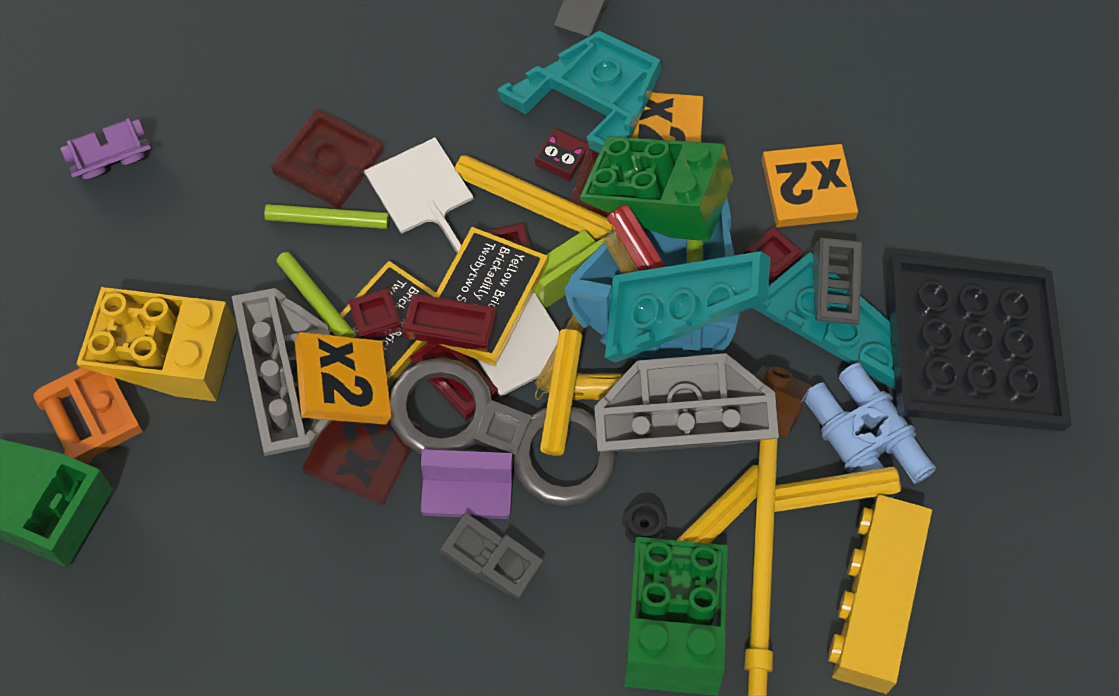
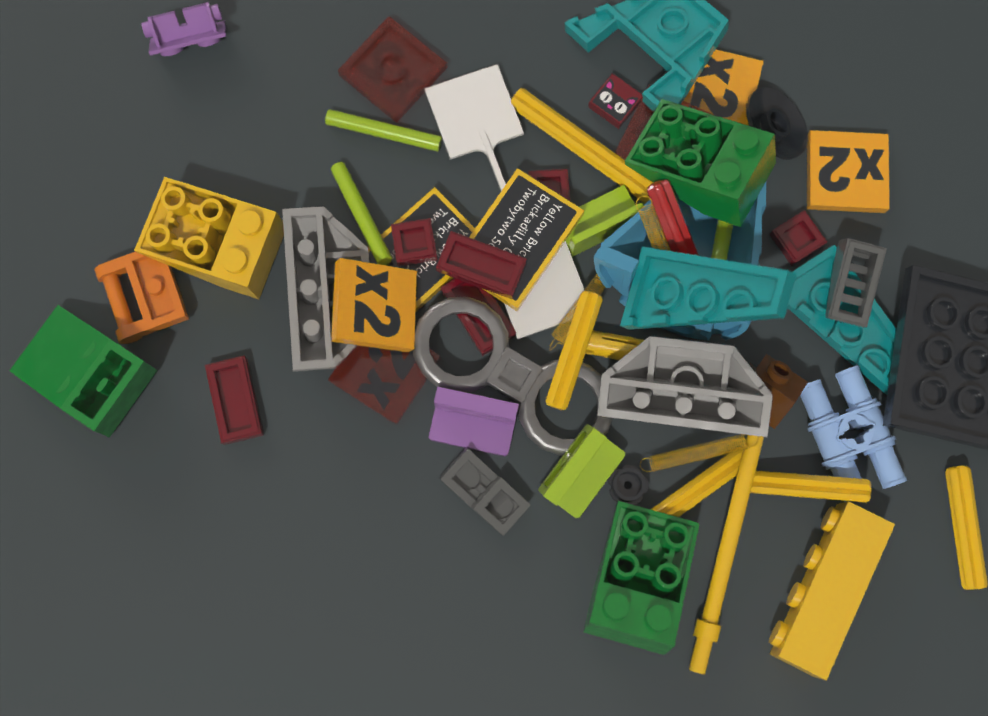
camera: 10 degrees right, 15 degrees up
(202, 507) = (234, 400): none -> dark red tile
(592, 516) = (582, 471): none -> lime panel
(732, 467) = (699, 448): none -> yellow piece
(742, 153) = (777, 114): none -> black dish
(1009, 509) = (966, 528): none -> yellow axle

